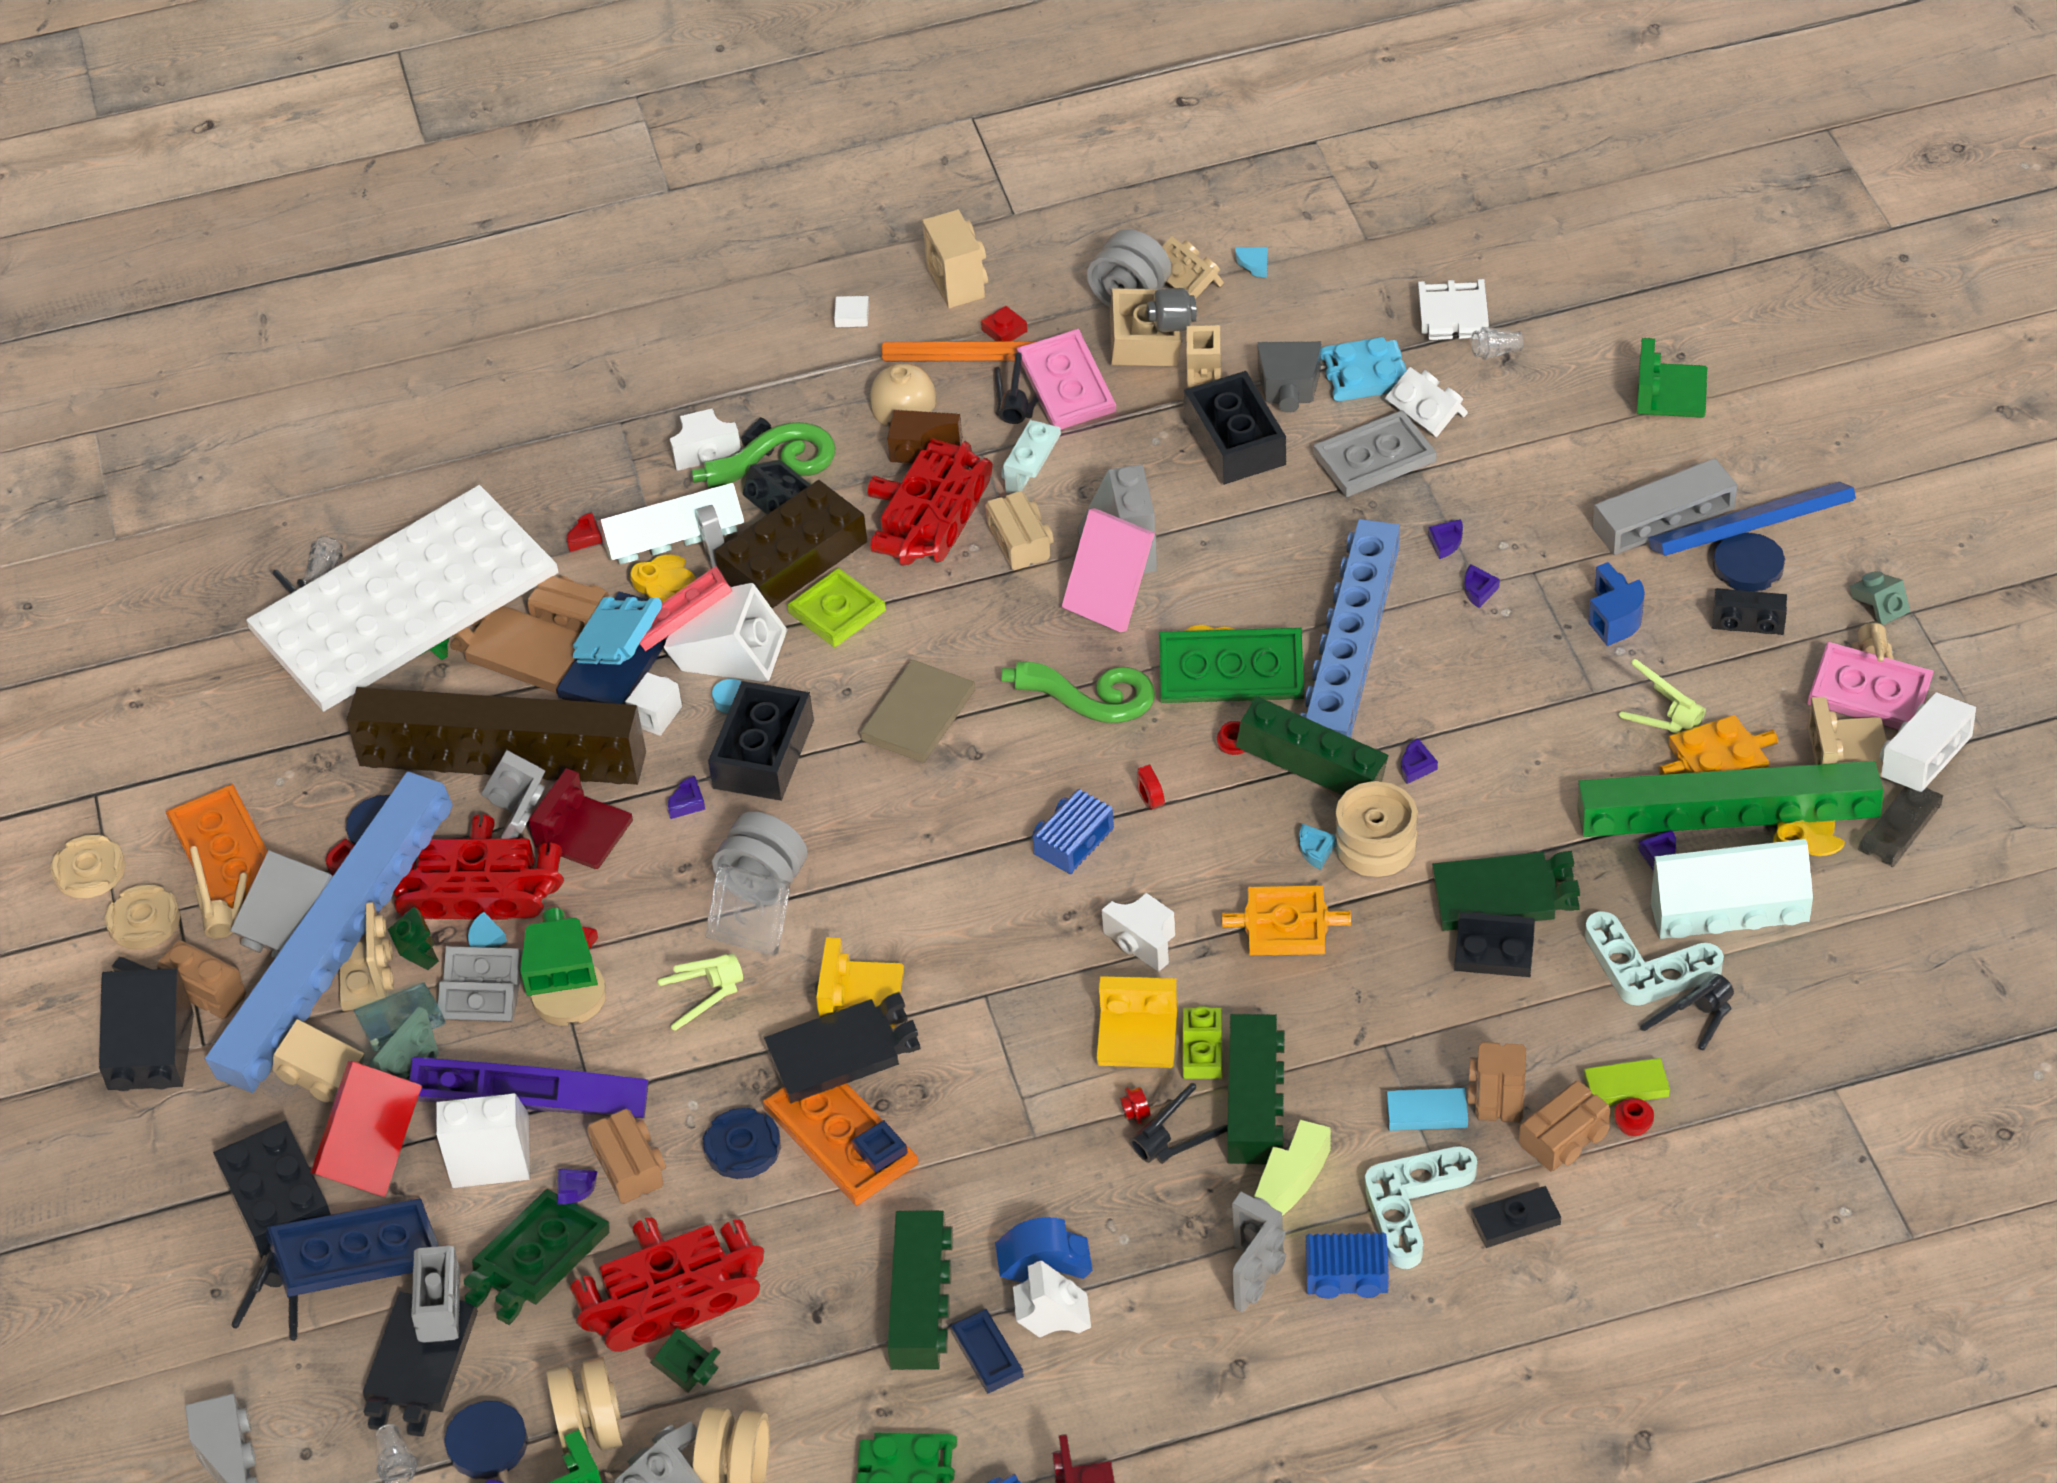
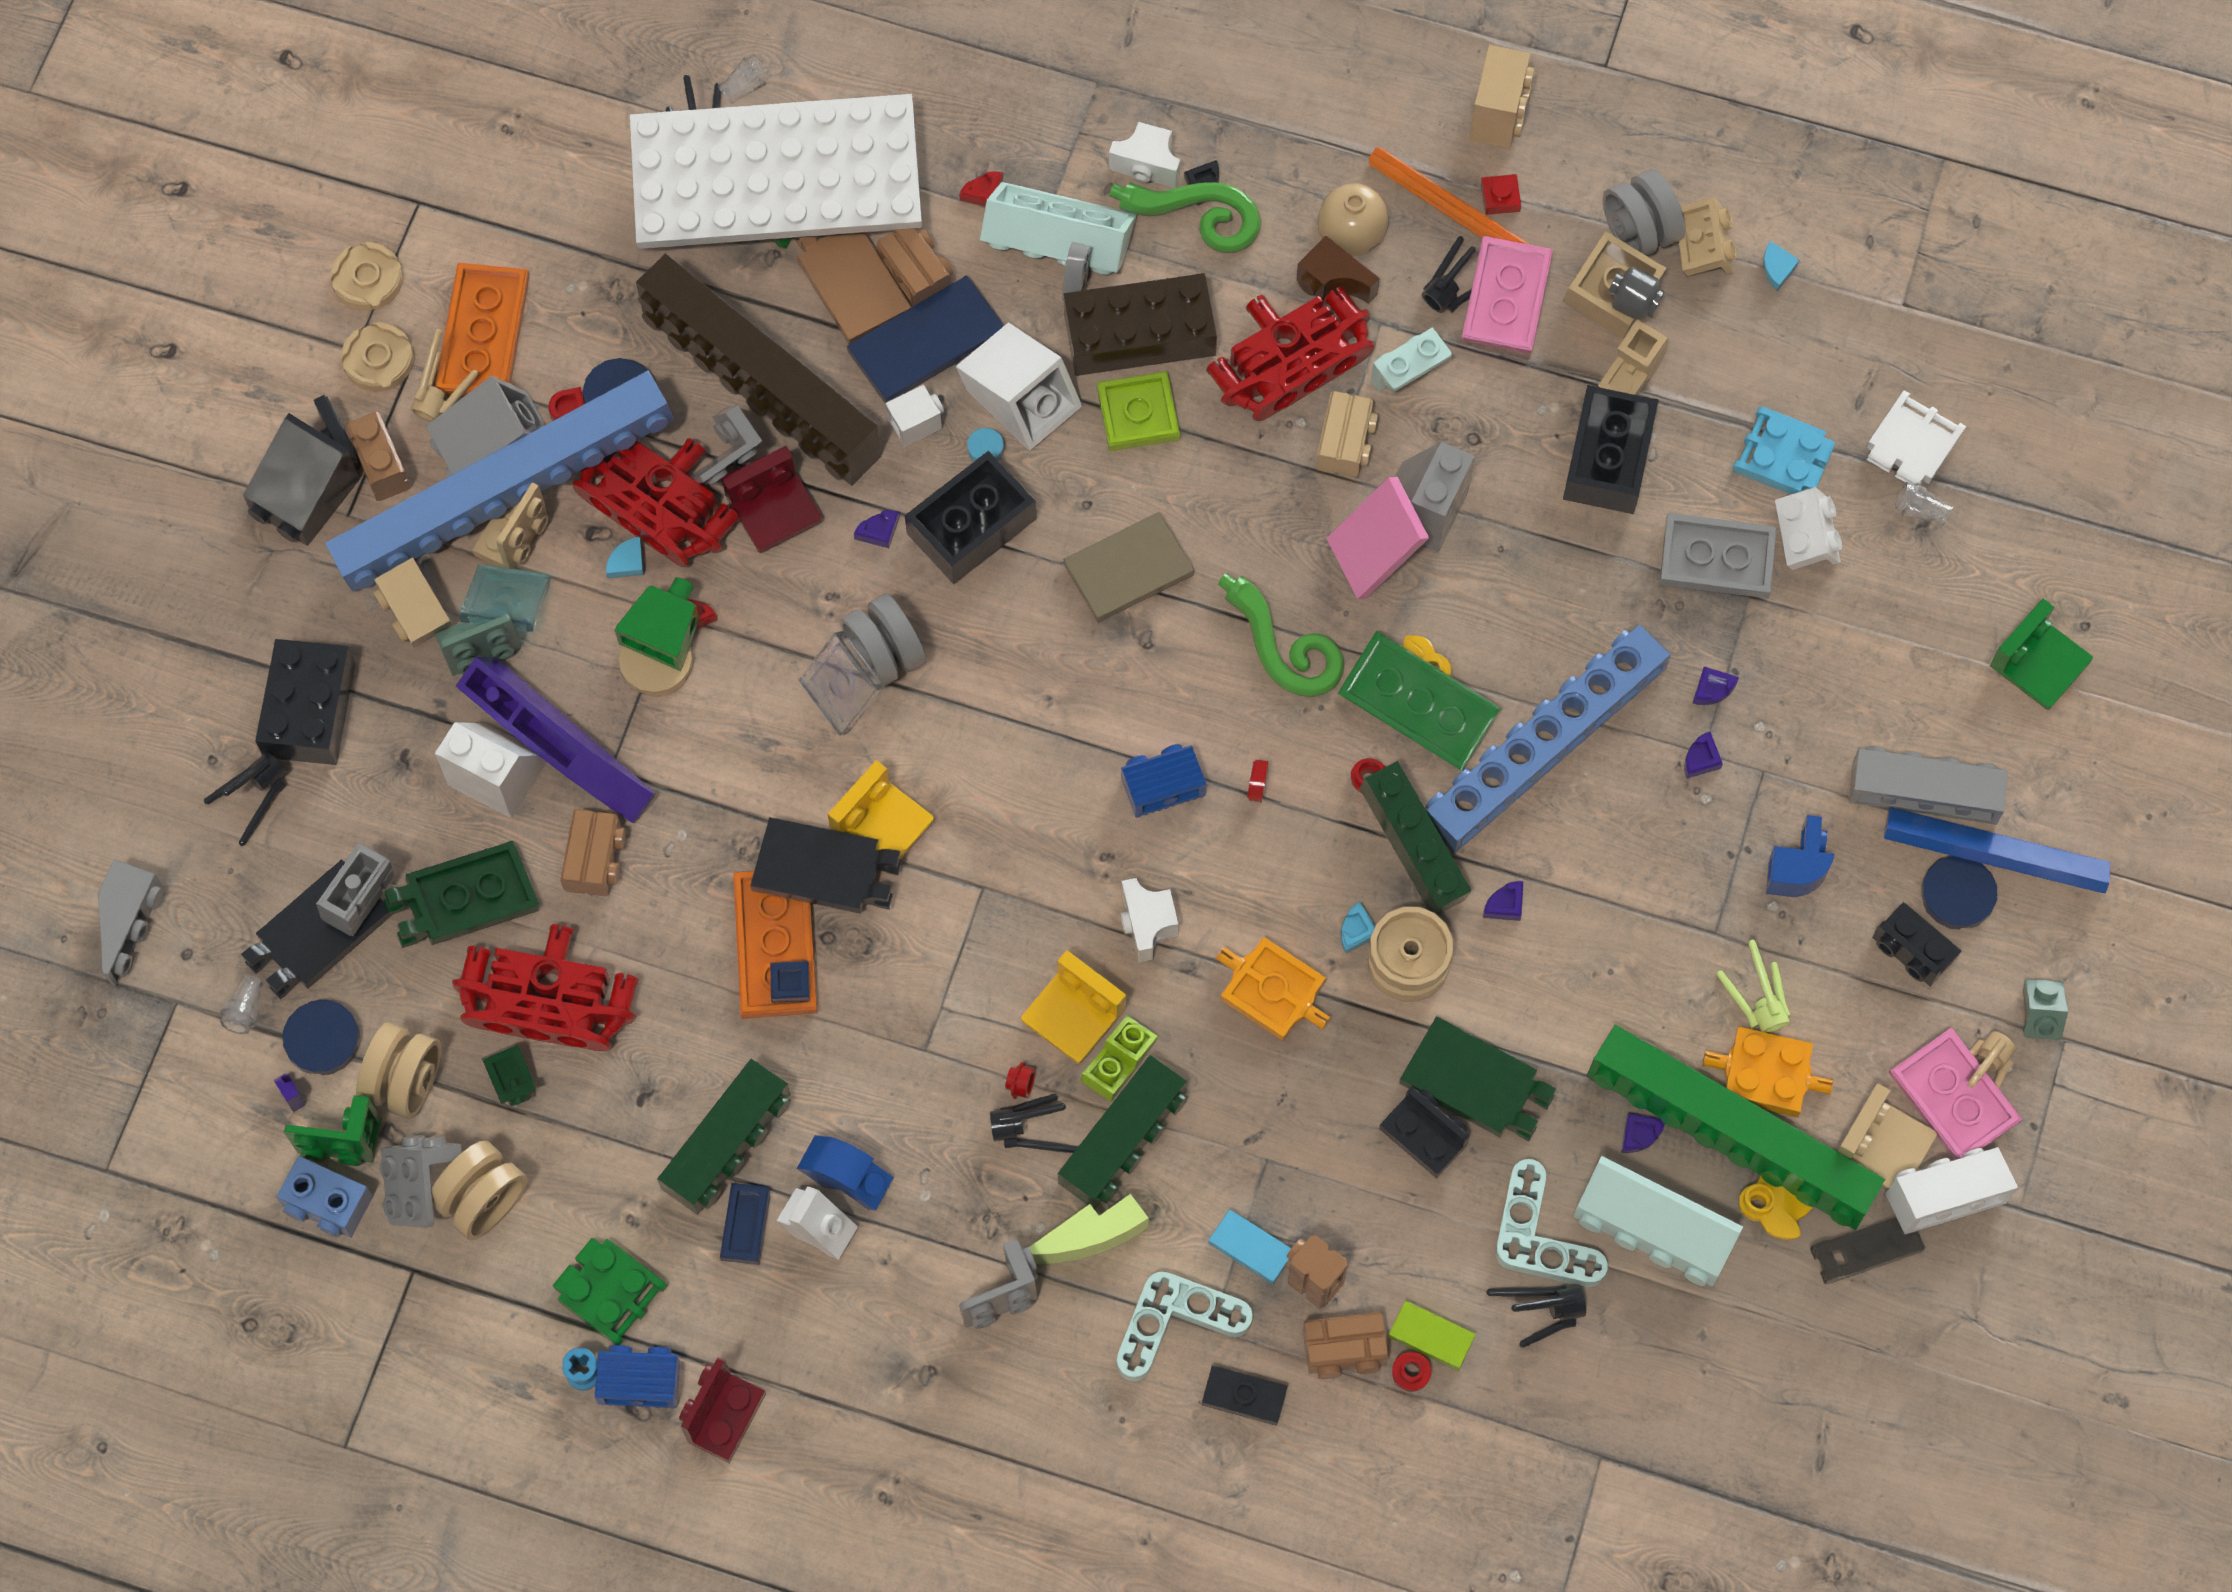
camera: 30 degrees right, 20 degrees up
(350, 1246) = (330, 797): dark blue tile -> none
(366, 1129) = (400, 699): tile -> none
(414, 939) = (561, 532): dark green bracket -> none
(480, 984) = (589, 606): light grey slope -> none
(575, 1185) = (535, 852): dark purple tile -> none
(614, 632) = (925, 323): medium azure plate -> none
(661, 576) = (1018, 288): yellow plate -> none
(686, 605) = (994, 337): coral tile -> none
(720, 971) = (784, 726): yellowish green plant -> none
(742, 1143) = (692, 900): dark blue tile -> none
(772, 485) = (1174, 248): black bracket -> none
(851, 311) = (1378, 90): white tile -> none
(1289, 372) = (1709, 418): dark grey torso -> none
(1347, 1264) = (1073, 1348): blue brick -> none

